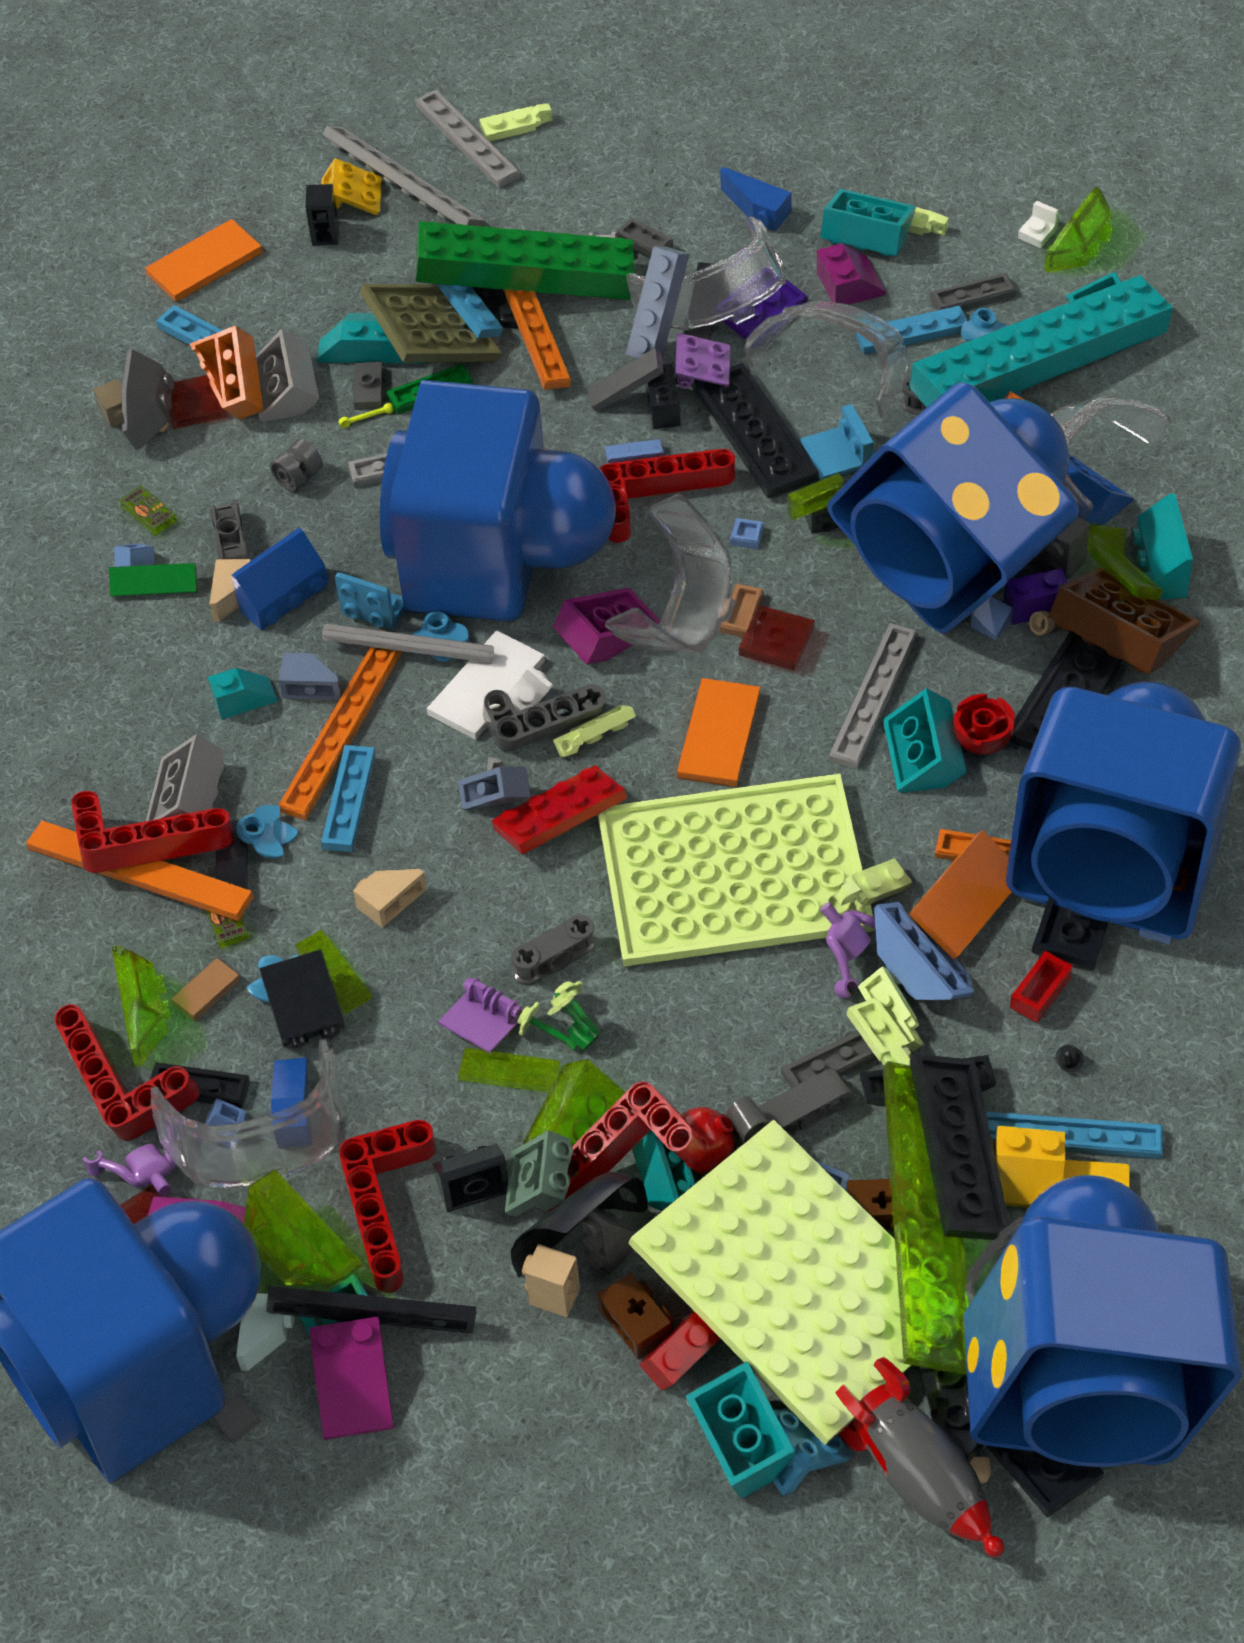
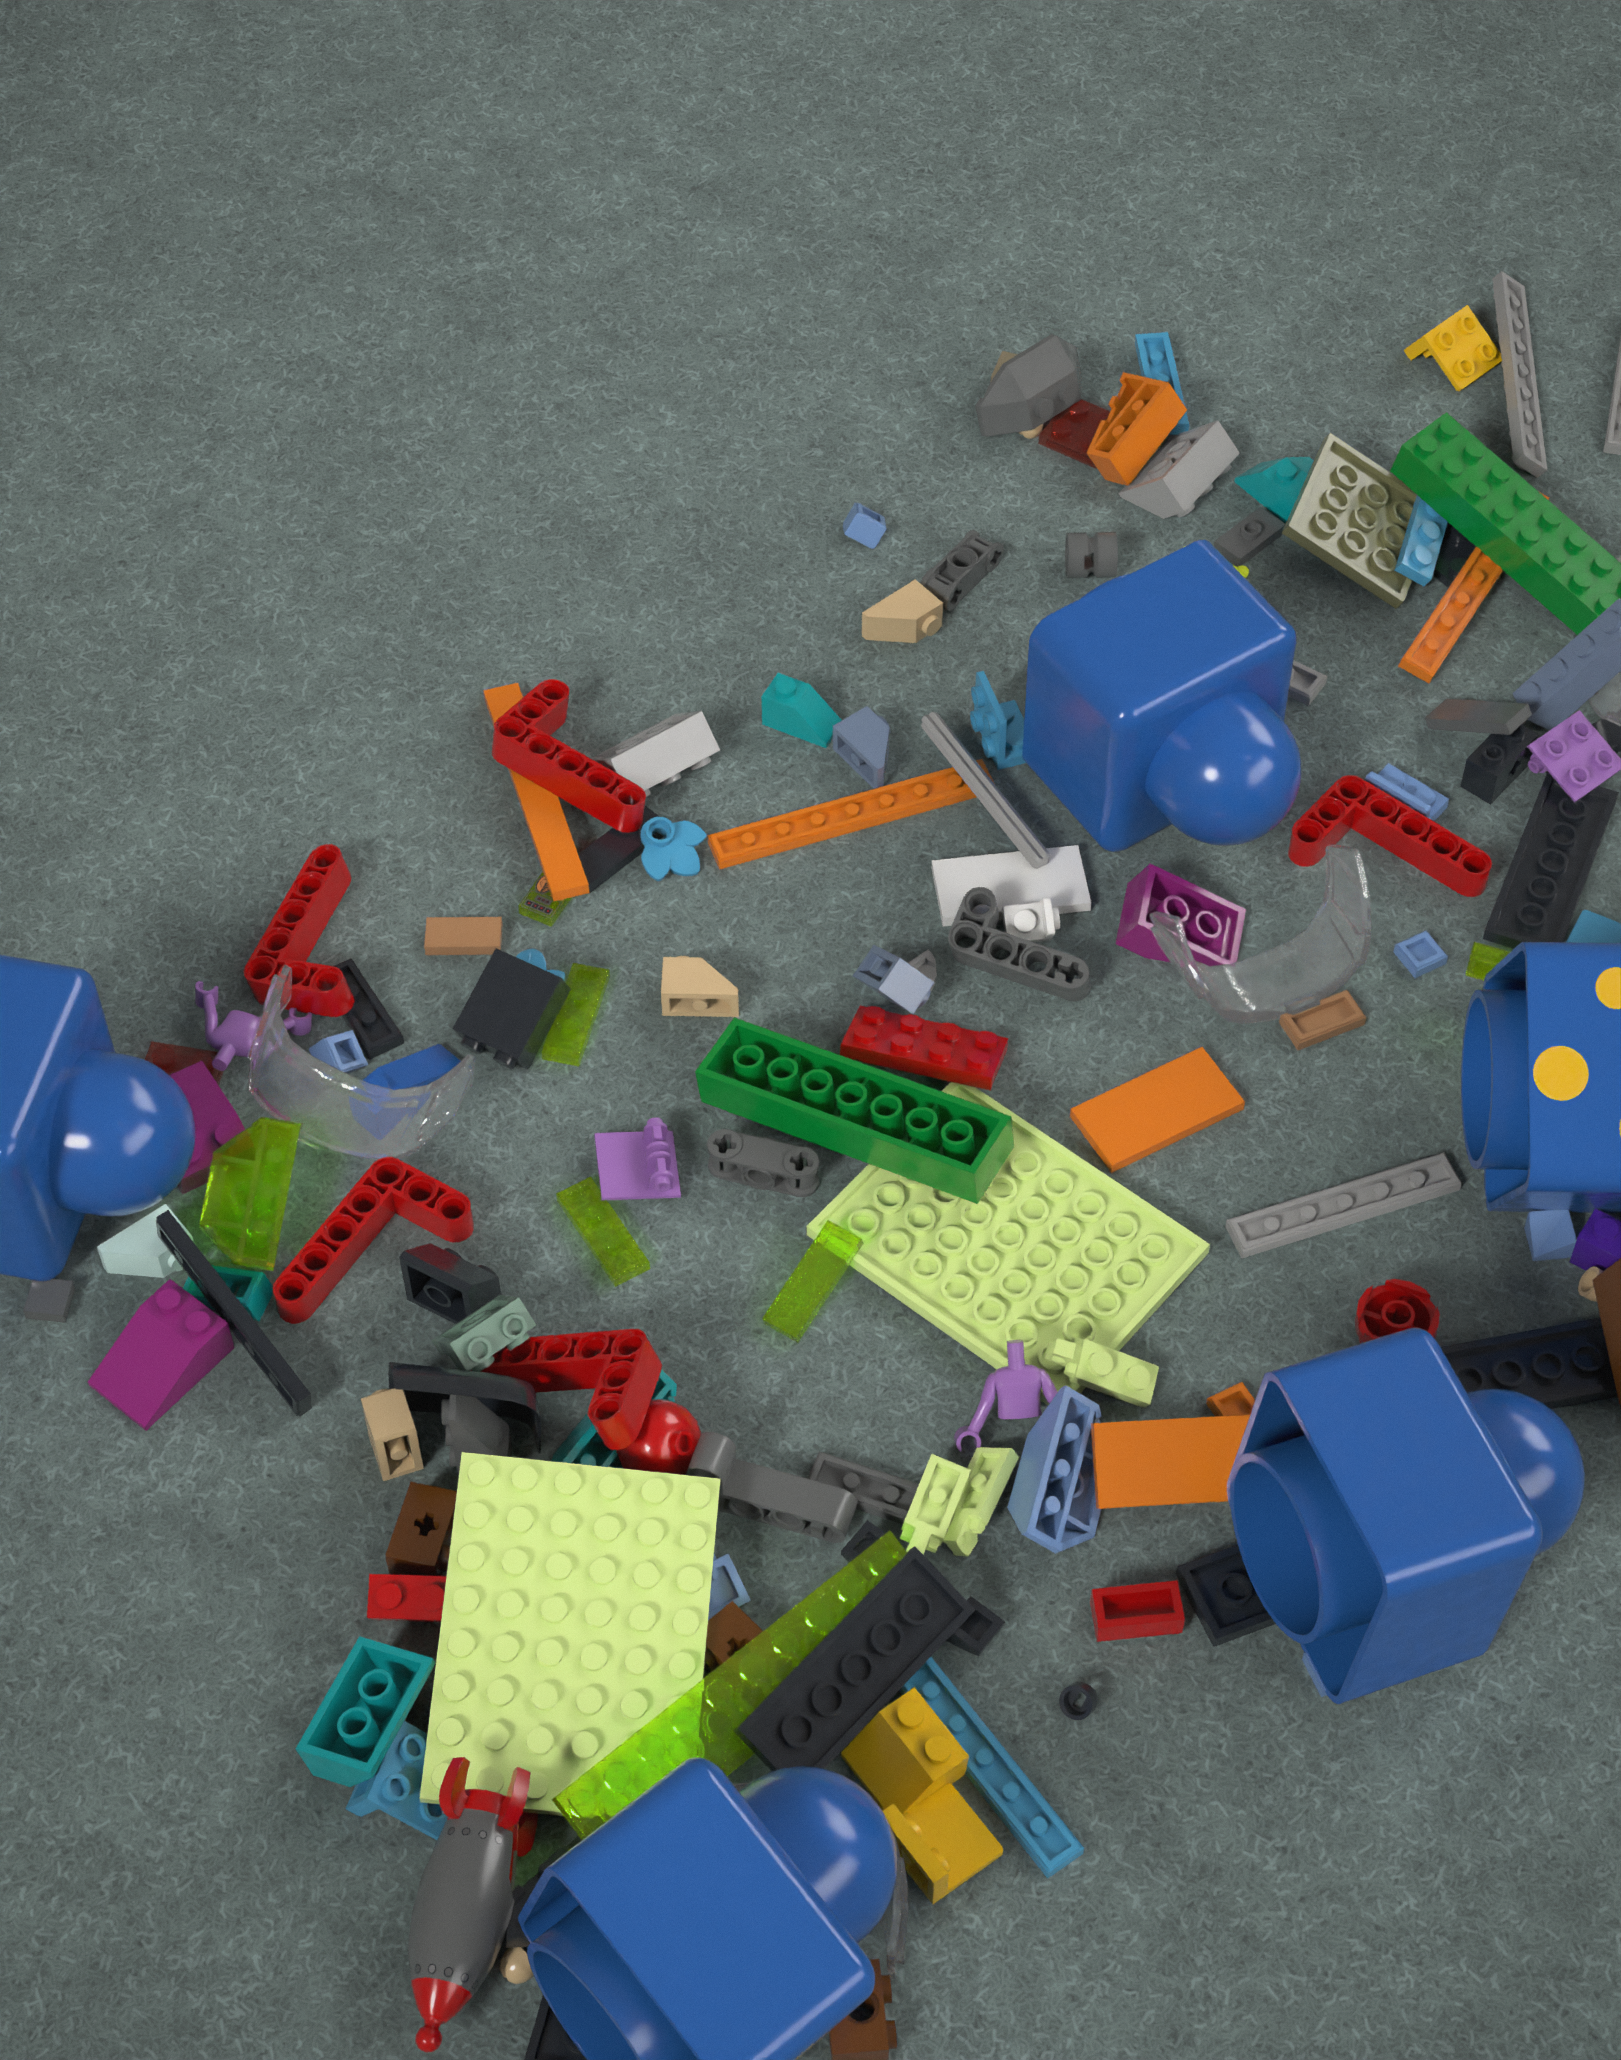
camera: 45 degrees right, 0 degrees up
(141, 1002) = (394, 898): clear neon green wedge -> none
(147, 510) = (926, 495): tile -> none
(153, 579) = (853, 556): green tile -> none
(203, 260) = (1249, 314): orange tile -> none
(279, 579) = (944, 640): blue slope -> none
(322, 214) = (1392, 348): black brick -> none
(348, 798) = (770, 879): dark azure plate -> none
(404, 396) = (1301, 584): green tile -> none
(446, 630) = (1035, 812): dark azure plate -> none
(574, 871) = (856, 1110): none -> green brick
(575, 1101) = (600, 1304): clear neon green slope -> none
(582, 1031) = (694, 1256): green plant -> none
(592, 730) = (1044, 1005): yellowish green hinge -> none
(664, 984) = (812, 1281): none -> clear neon green tile
(776, 637) = (1318, 1071): clear red plate -> none
(924, 743) = (1322, 1290): teal slope -> none

